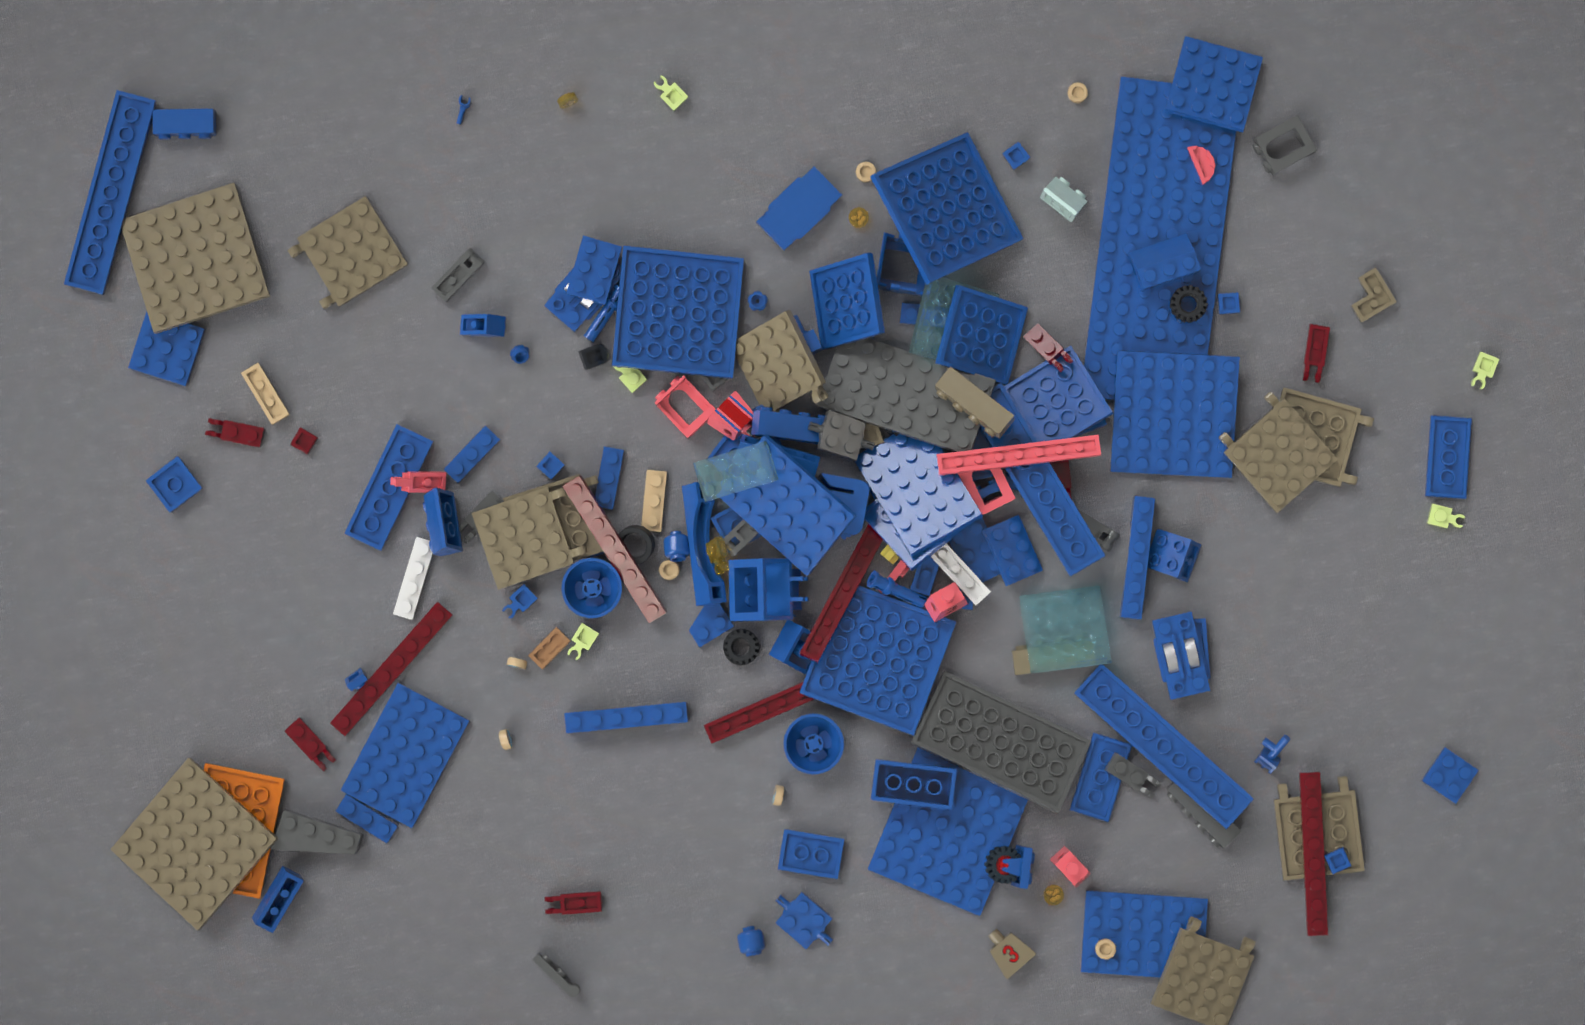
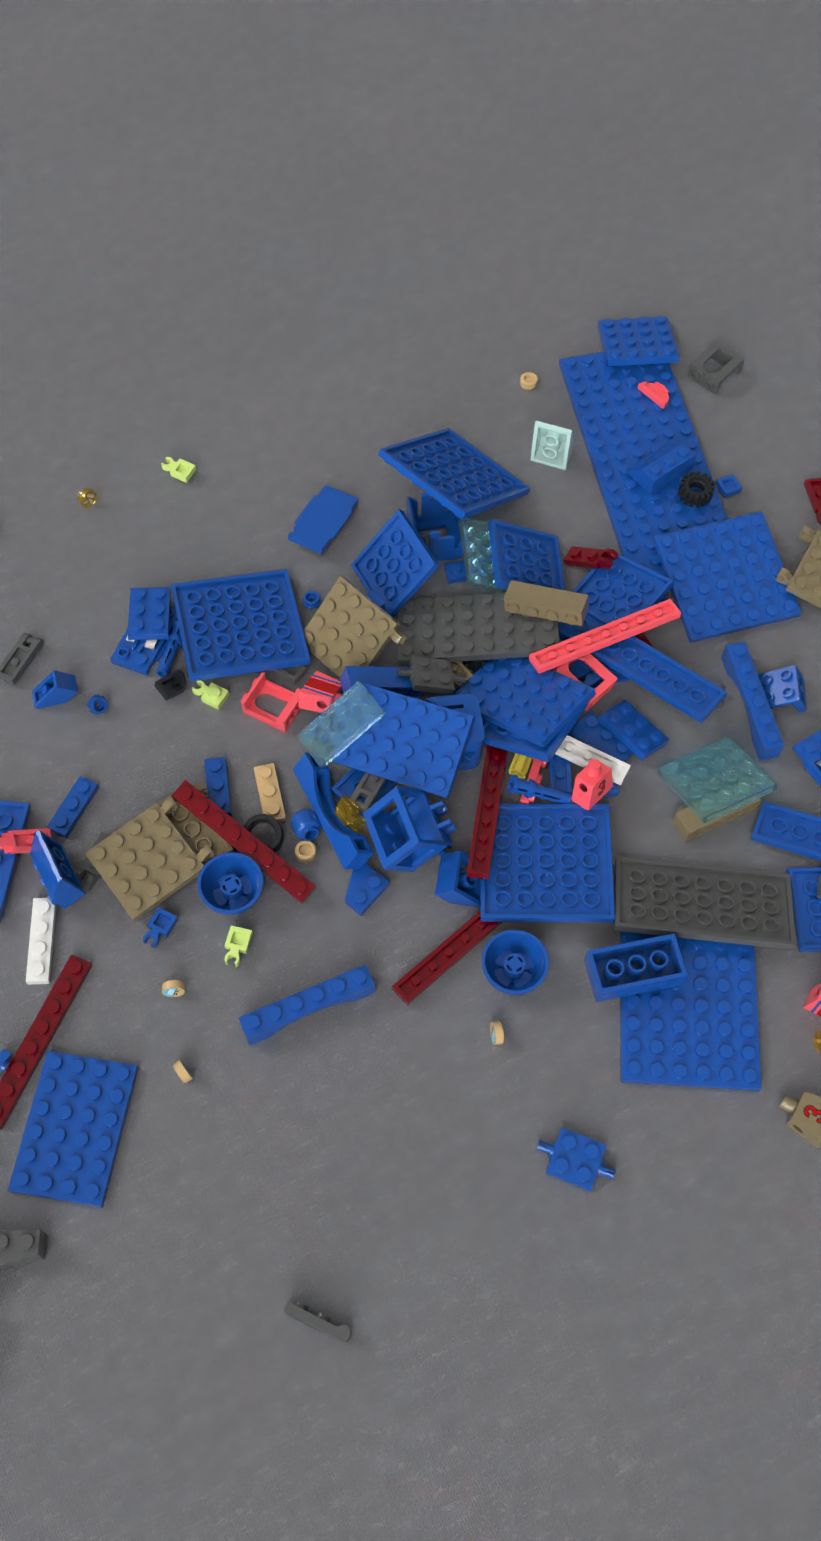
camera: 25 degrees left, 25 degrees down
(366, 818) = (46, 1213): blue plate -> none
(549, 648) = (204, 963): medium nougat plate -> none
(550, 465) = (155, 791): blue plate -> none
(576, 903) = (314, 1228): dark red hinge -> none
(738, 634) = (404, 886): black tyre -> none
(751, 941) = (527, 1202): blue head -> none
(811, 854) = (555, 1083): blue plate -> none
(858, 217) = (379, 514): clear yellow tile -> none
(864, 171) = (372, 480): tan tile -> none
(1011, 865) = (773, 1019): plate -> none
(1016, 155) = (497, 433): blue plate -> none

